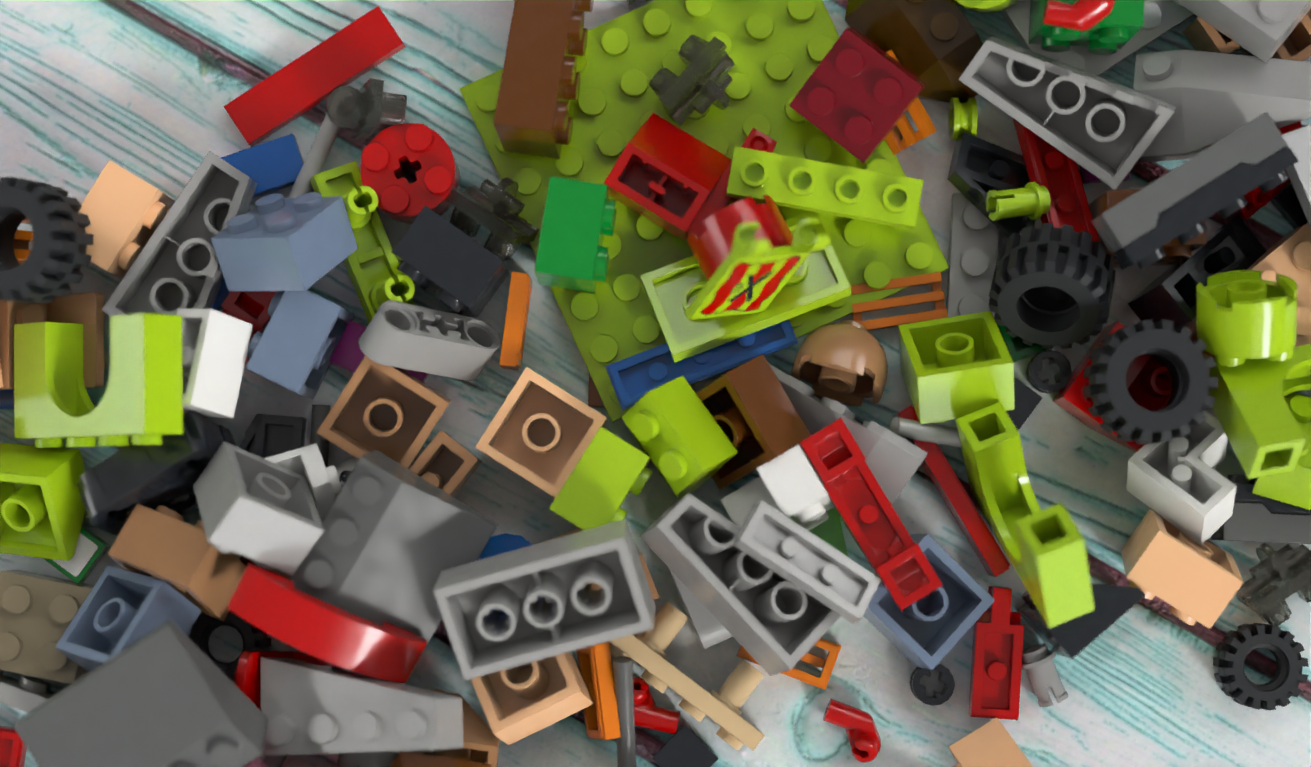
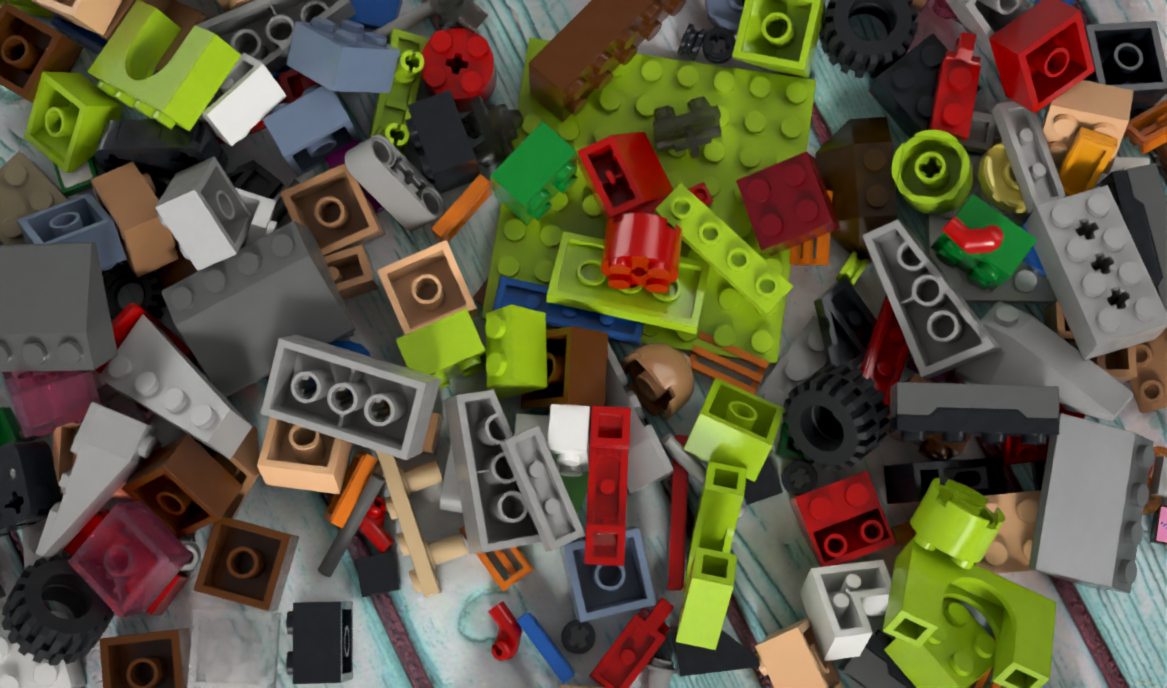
camera: 40 degrees right, 5 degrees down
(324, 629) = (194, 321): red slope -> none
(754, 271) = (629, 271): lime flag -> none
(908, 716) = (546, 647): none -> blue tile
(1026, 201) = (850, 345): lime pin -> none
(1188, 376) = (891, 514): black tyre -> none

